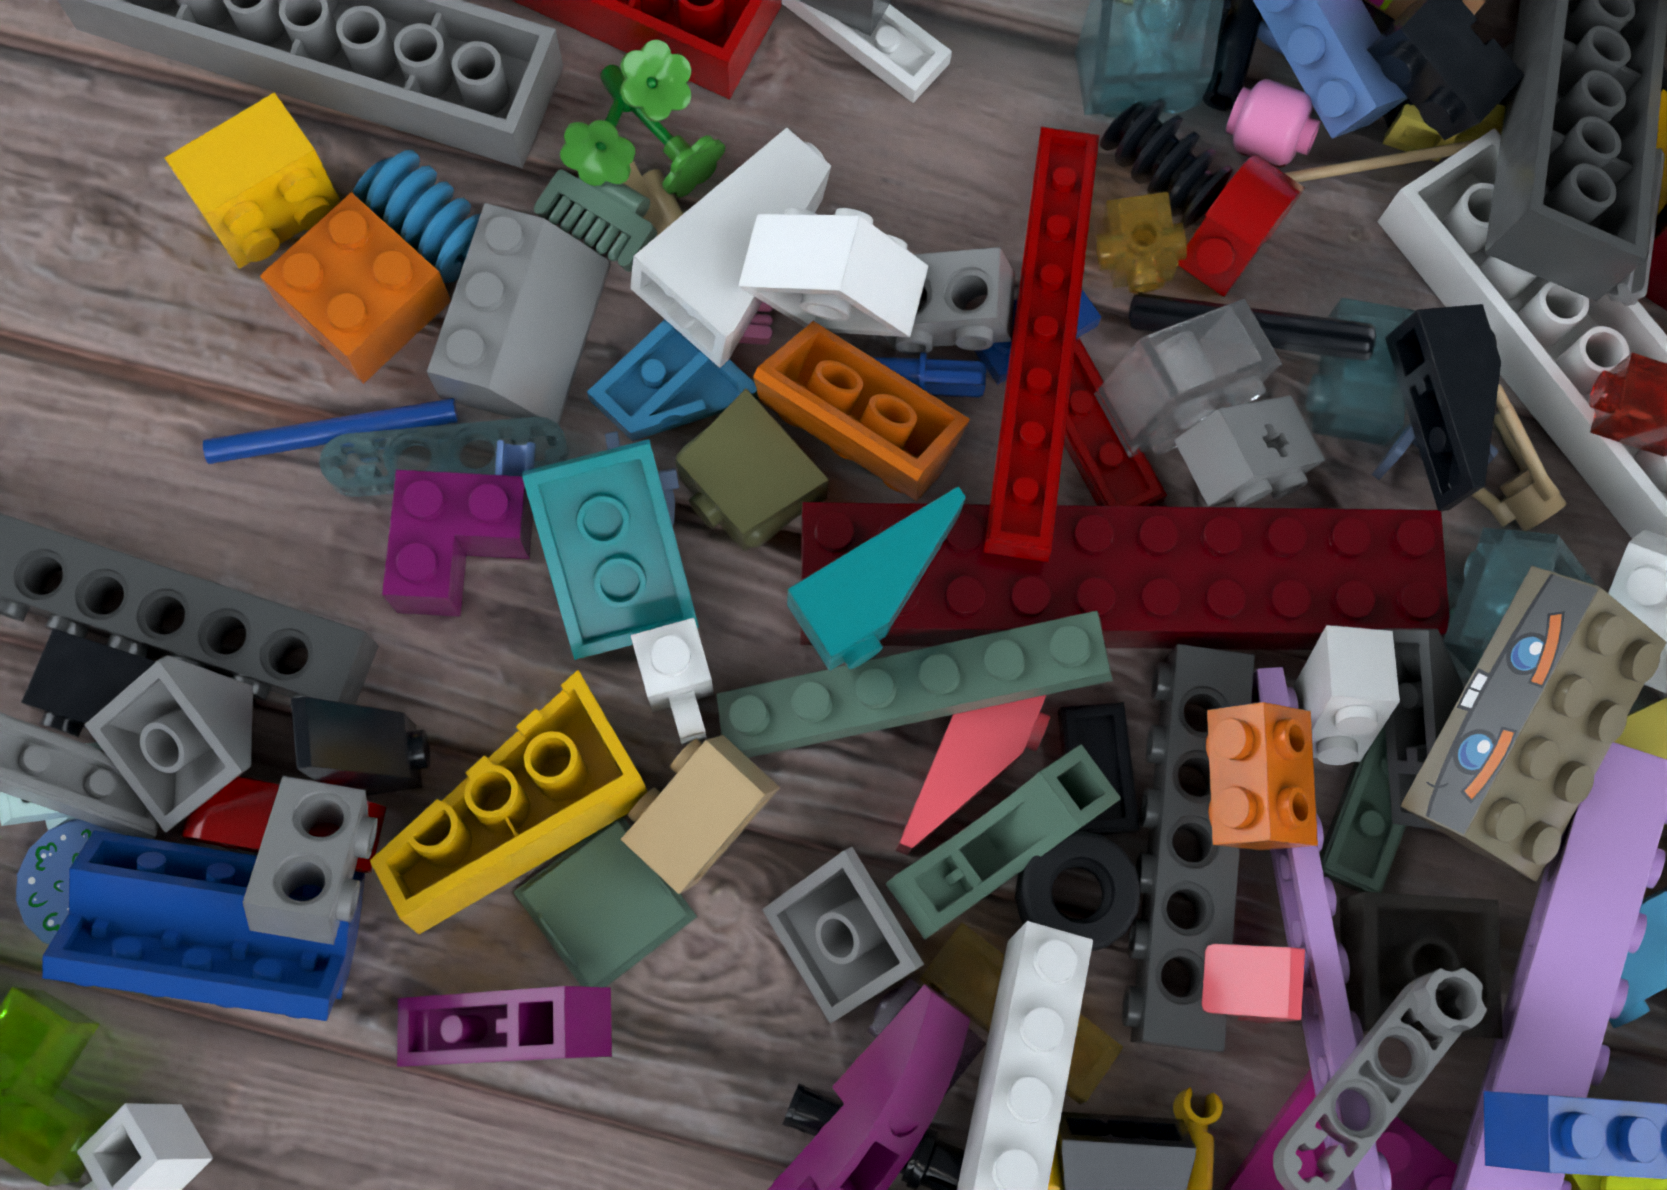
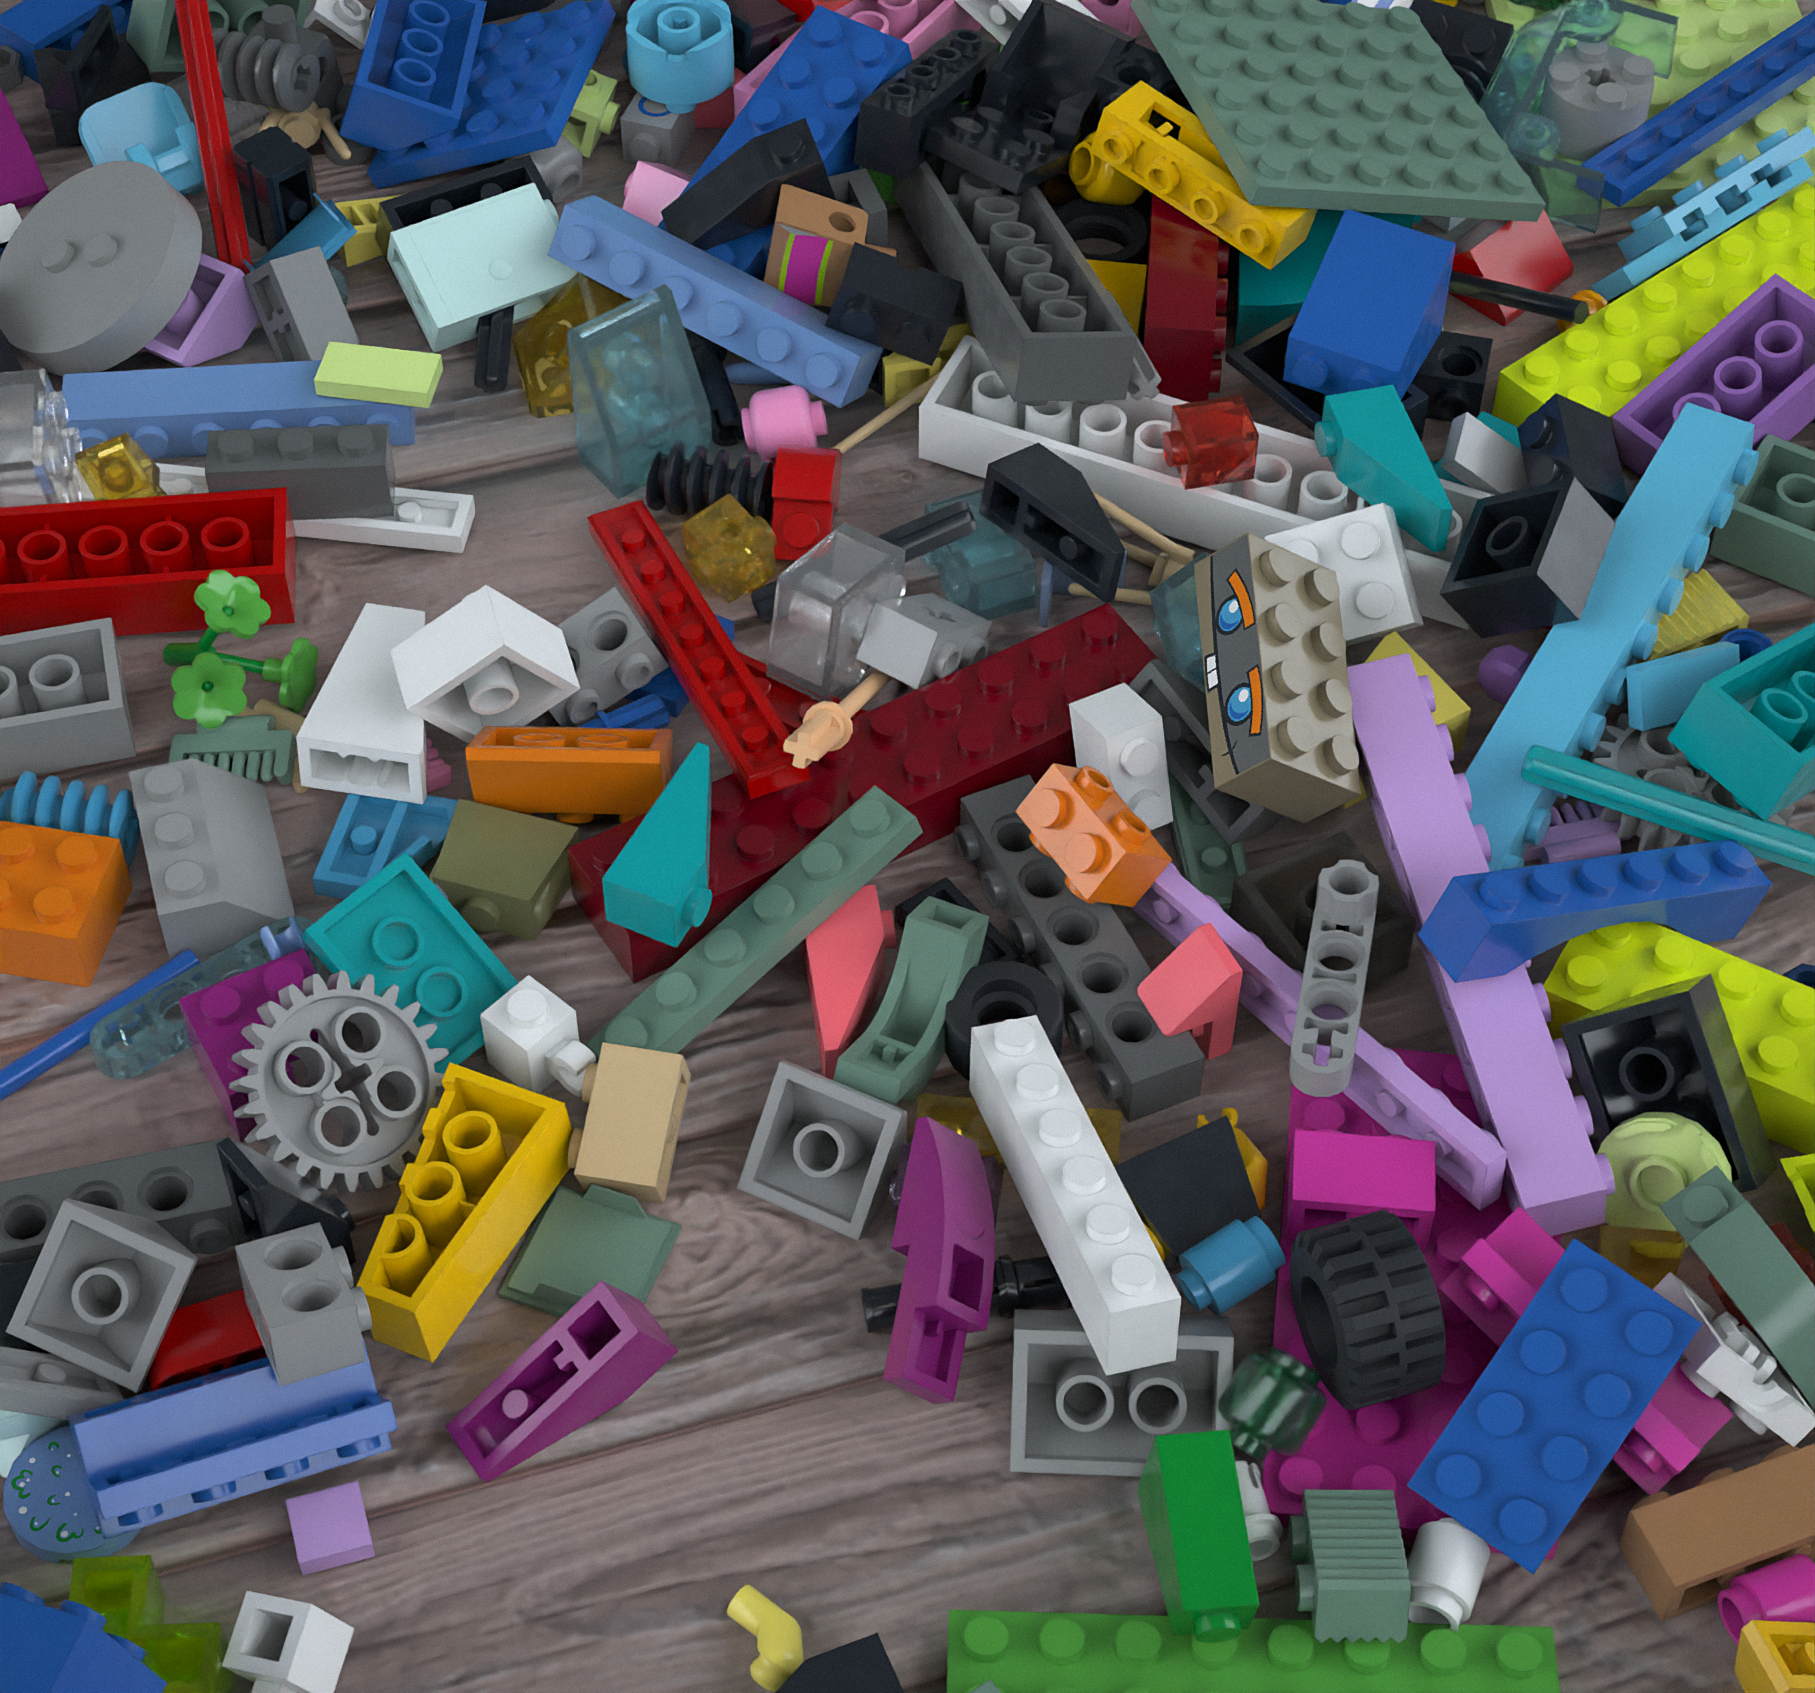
camera: 25 degrees left, 25 degrees down
(255, 1043) = (330, 1528): none -> lavender tile
(420, 645) = (293, 1114): none -> light grey gear
(1095, 519) = (829, 724): none -> light nougat piece

